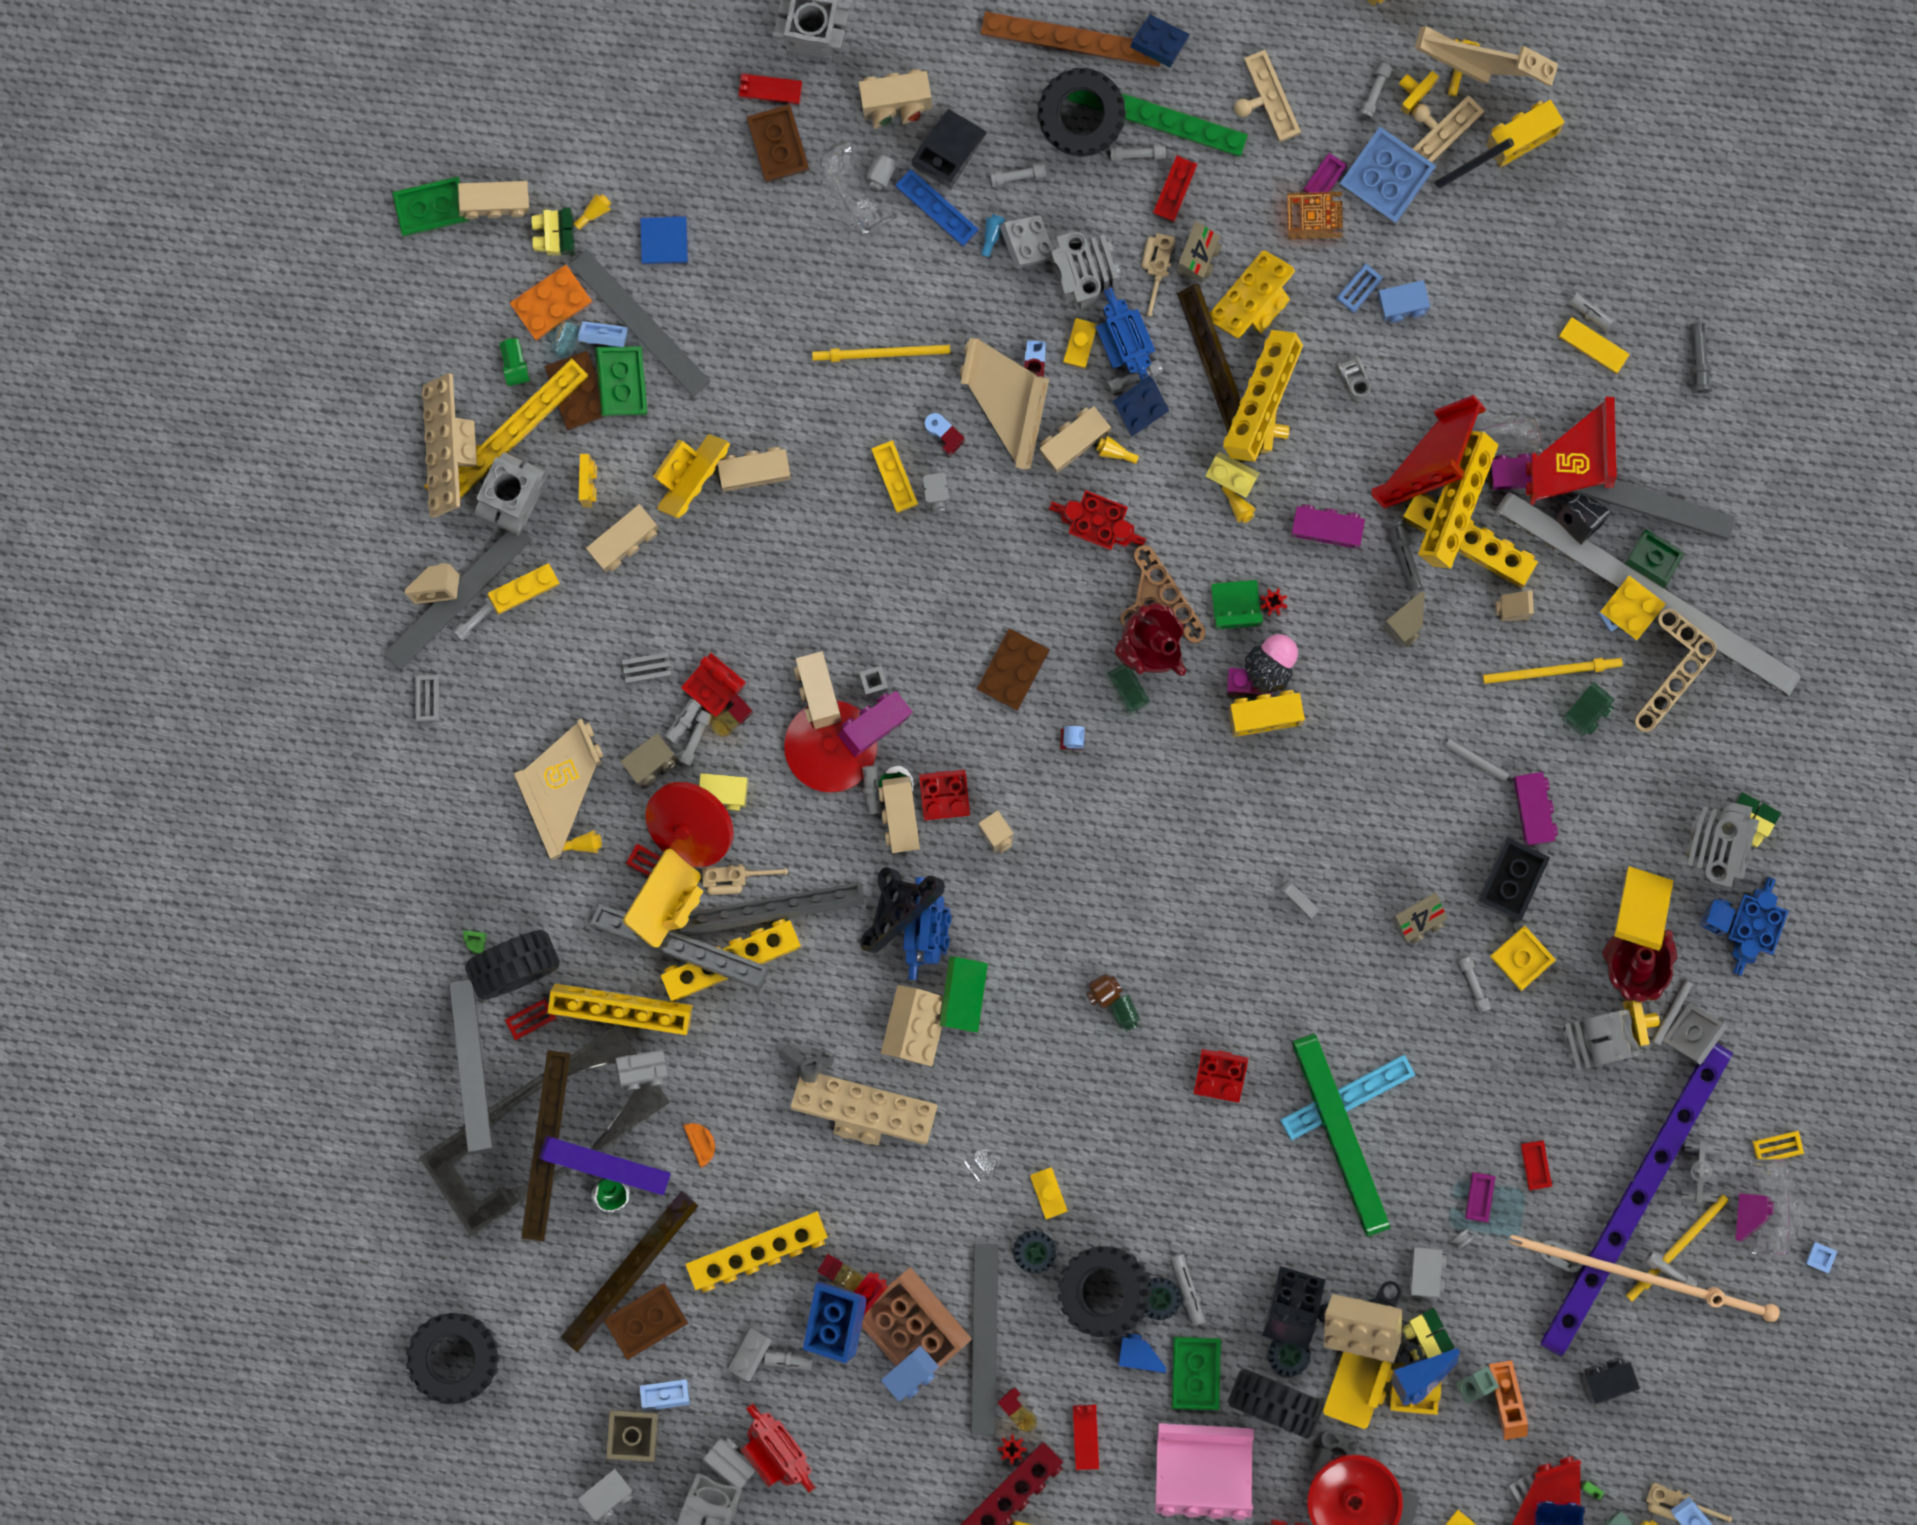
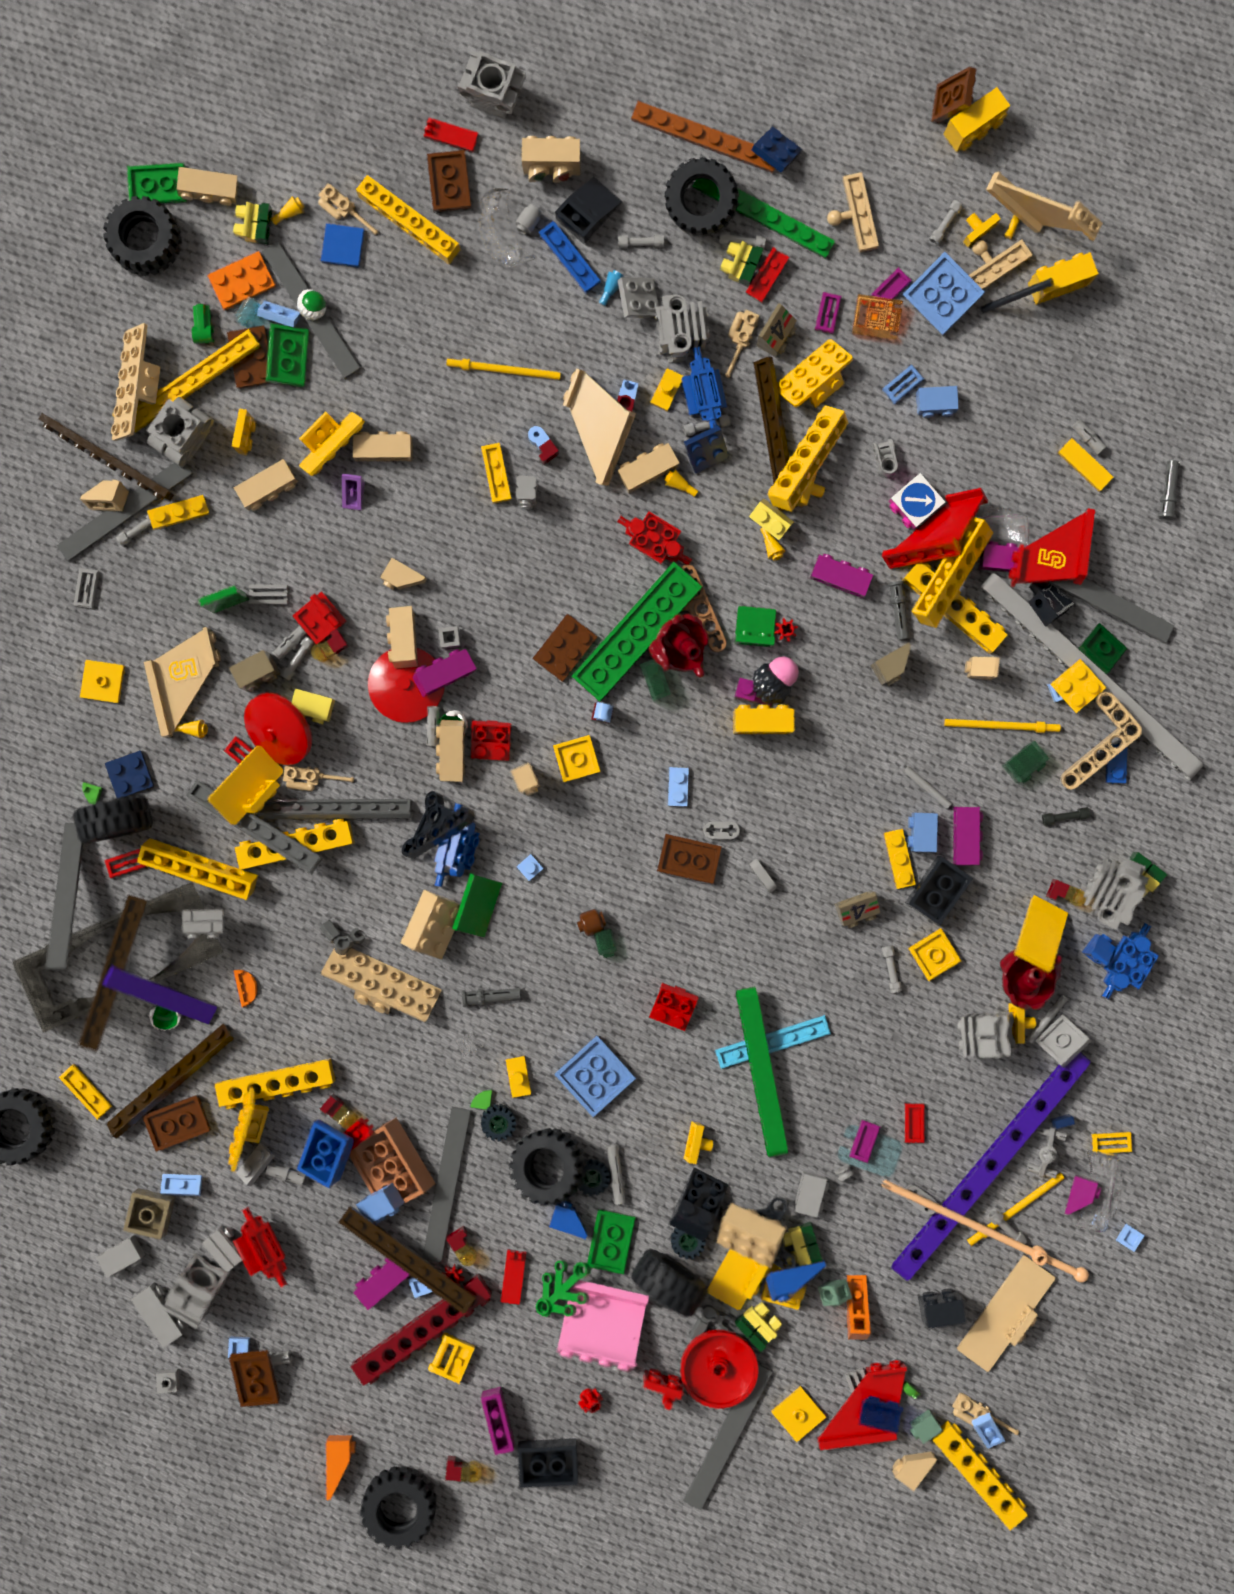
camera: 10 degrees right, 5 degrees up
(418, 242) = (125, 218): none -> black tyre
(435, 543) = (98, 454): none -> dark brown plate
(465, 806) = (102, 681): none -> yellow plate
(517, 911) = (129, 774): none -> dark blue plate
(528, 1303) = (85, 1091): none -> yellow tile
(598, 681) = (223, 599): none -> green tile
(640, 316) = (311, 304): none -> hair
(656, 191) = (344, 206): none -> tan piece
(727, 528) = (352, 491): none -> medium lavender slope
(737, 1308) = (250, 1127): none -> yellow bracket
(738, 197) = (408, 219): none -> yellow brick
(802, 618) = (400, 576): none -> tan slope
(928, 1467) = (379, 1284): none -> magenta brick
(955, 1433) = (407, 1259): none -> dark brown plate
(975, 1465) = (418, 1288): none -> light blue plate
(987, 1104) = (481, 997): none -> dark grey pin
(1010, 1229) = (482, 1100): none -> bright green tile
(1017, 939) = (529, 867): none -> light blue plate
(1050, 799) = (576, 758): none -> yellow plate
(1095, 635) = (636, 631): none -> green plate
(1141, 1175) = (595, 1076): none -> medium blue plate
(1146, 179) = (744, 264): none -> hips
(1147, 1439) = (561, 1289): none -> green plant
(1178, 811) = (678, 786): none -> light blue plate
(1207, 894) = (689, 858): none -> reddish brown plate
(1238, 848) = (721, 835): none -> light grey beam
(1254, 239) = (824, 328): none -> magenta tile
(1277, 1234) = (696, 1142): none -> yellow tile
(1400, 424) = (916, 502): none -> piece
(1401, 1449) = (756, 1327): none -> light yellow hips
(1459, 851) = (899, 858): none -> yellow plate
(1482, 814) = (923, 832): none -> medium blue brick
(1666, 855) = (1060, 889): none -> leg
(1668, 759) = (1081, 813): none -> pearl dark grey bar
(1690, 1376) = (1007, 1314): none -> tan bracket
(1698, 695) = (1117, 767): none -> blue plate
(1713, 1131) = (1062, 1121): none -> dark blue tile

